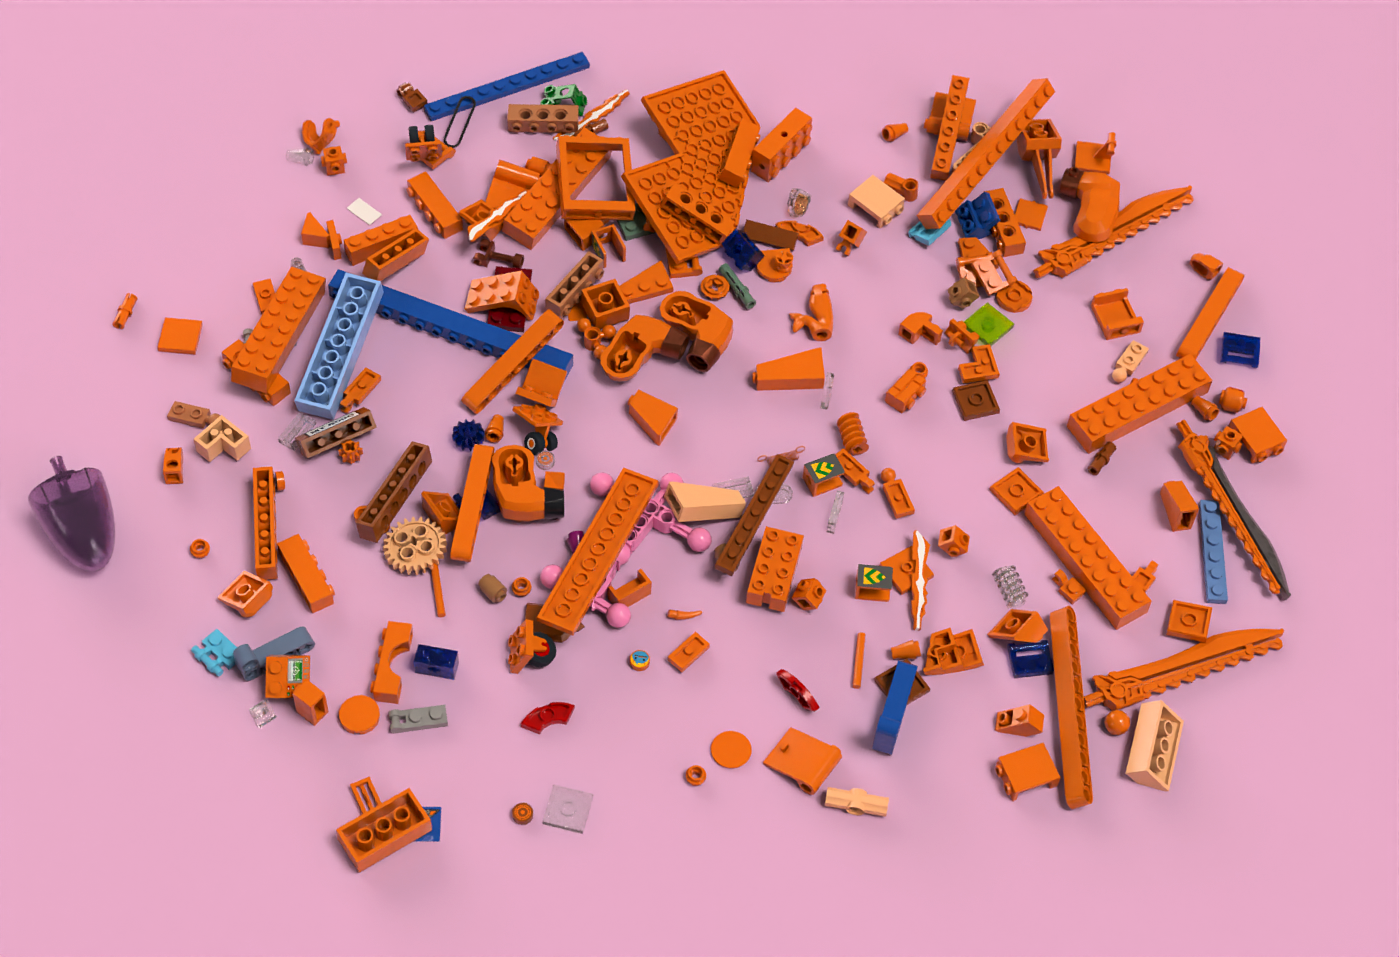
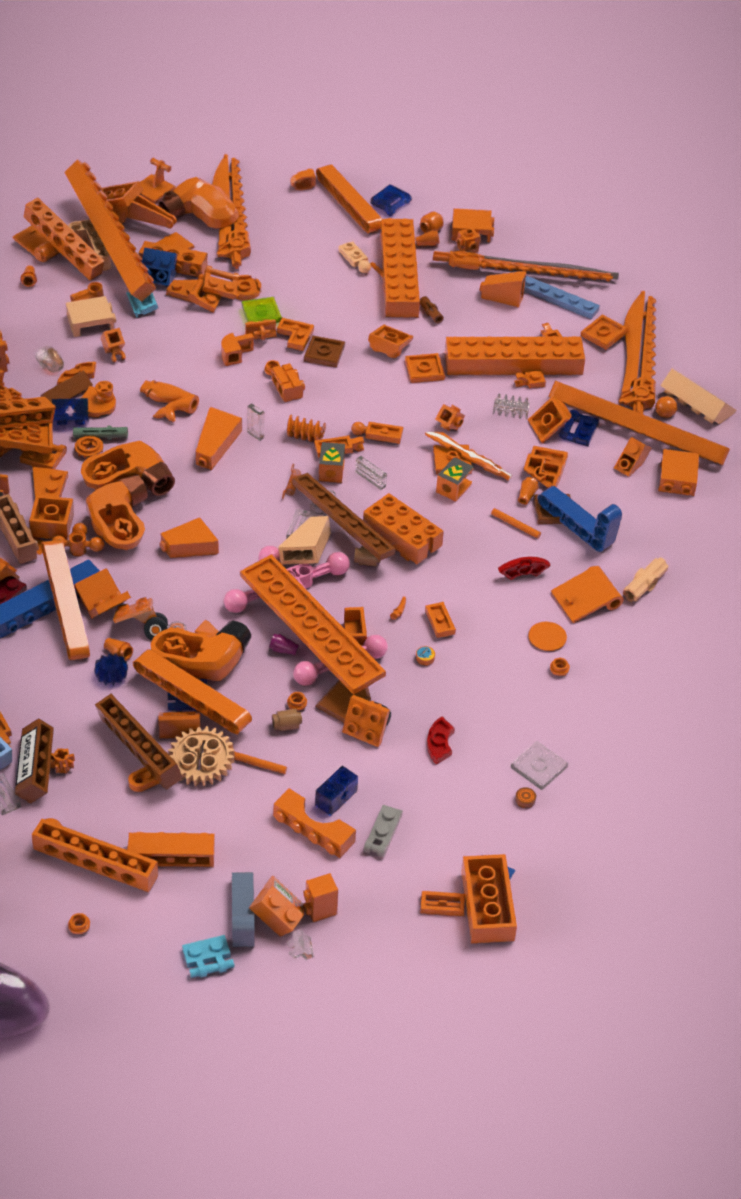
camera: 60 degrees left, 10 degrees down
(247, 594) = (161, 903): orange slope -> none
(359, 714) = (350, 872): orange tile -> none
(809, 594) = (440, 518): orange brick -> none
(963, 293) = (226, 304): medium nougat brick -> none
(1116, 314) = (308, 244): orange panel -> none

